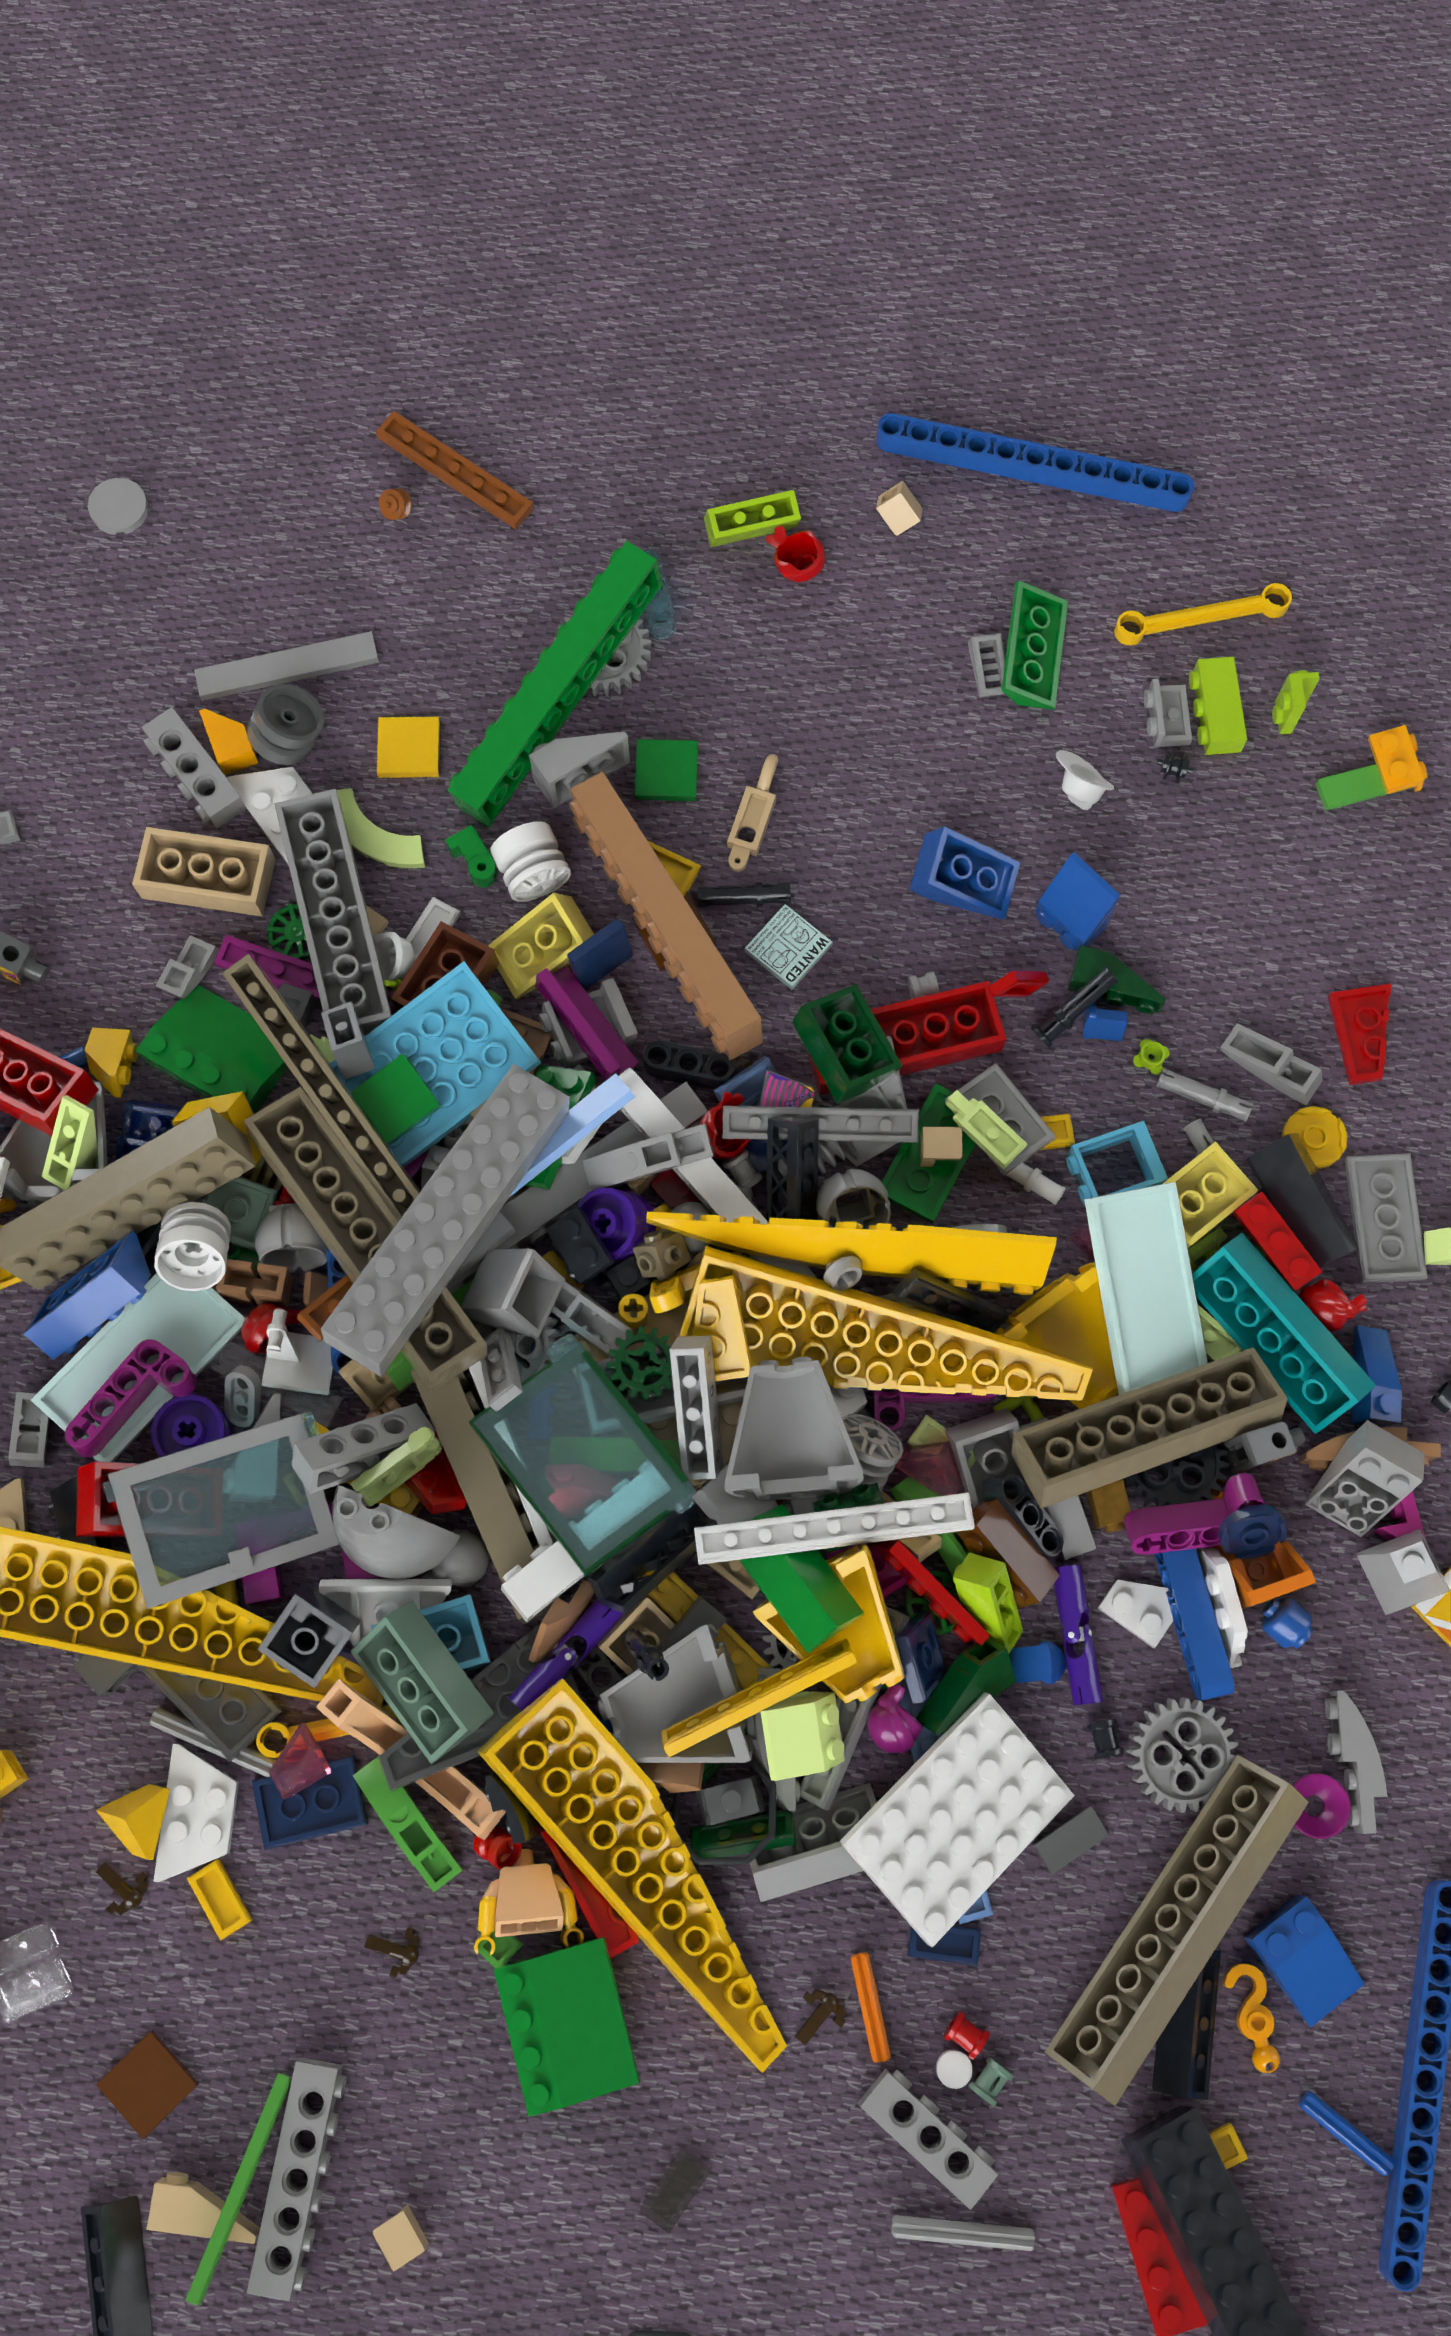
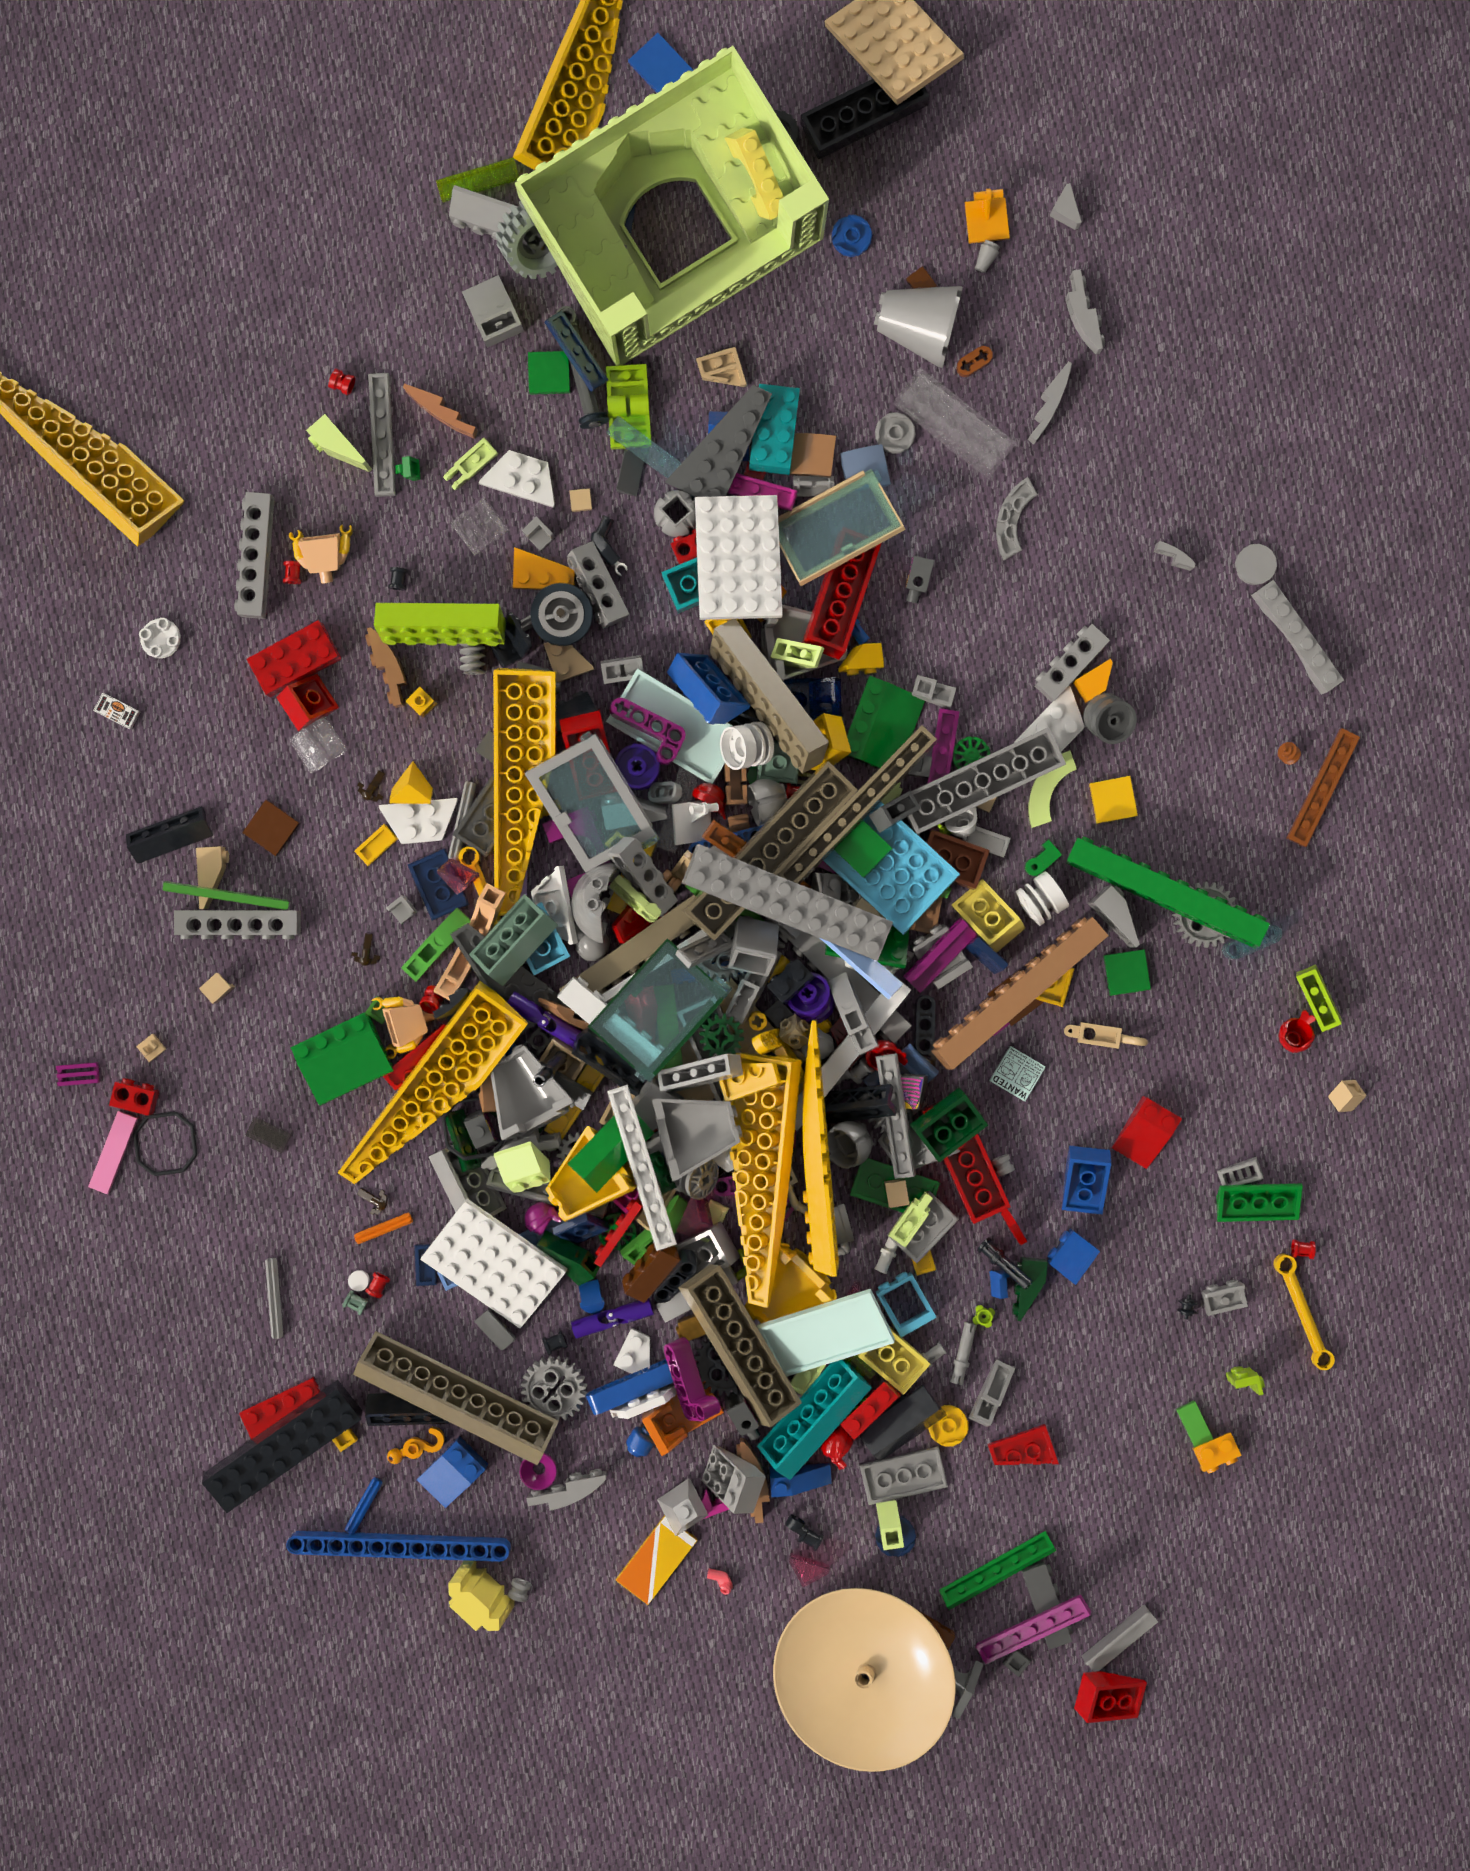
camera: 80 degrees right, 15 degrees up
(81, 600) = (1179, 559): none -> light grey slope
(187, 482) = (1282, 614): none -> light grey arch
(204, 871) = (999, 688): tan brick -> none
(286, 666) = (1157, 706): light grey tile -> none
(309, 1635) = (529, 868): black slope -> none
(336, 1872) = (402, 909): none -> light grey panel
(747, 894) = (1048, 1043): black pin -> none
(758, 1697) = (538, 1138): yellow tile -> none
(843, 1273) = (797, 1148): light grey hat -> none
(906, 779) = (1146, 1132): none -> red slope
(949, 1301) = (795, 1214): black tile -> none
(966, 2183) = (299, 1296): light grey brick -> none
(989, 1598) = (622, 1263): lime slope -> none
(1048, 460) = (1403, 1191): blue beam -> none
(1081, 780) = (1167, 1247): white piece -> none
(1111, 599) = (1303, 1249): none -> red bush
(1218, 706) = (1236, 1330): lime brick -> none
(1252, 1531) = (687, 1415): dark blue tile -> none

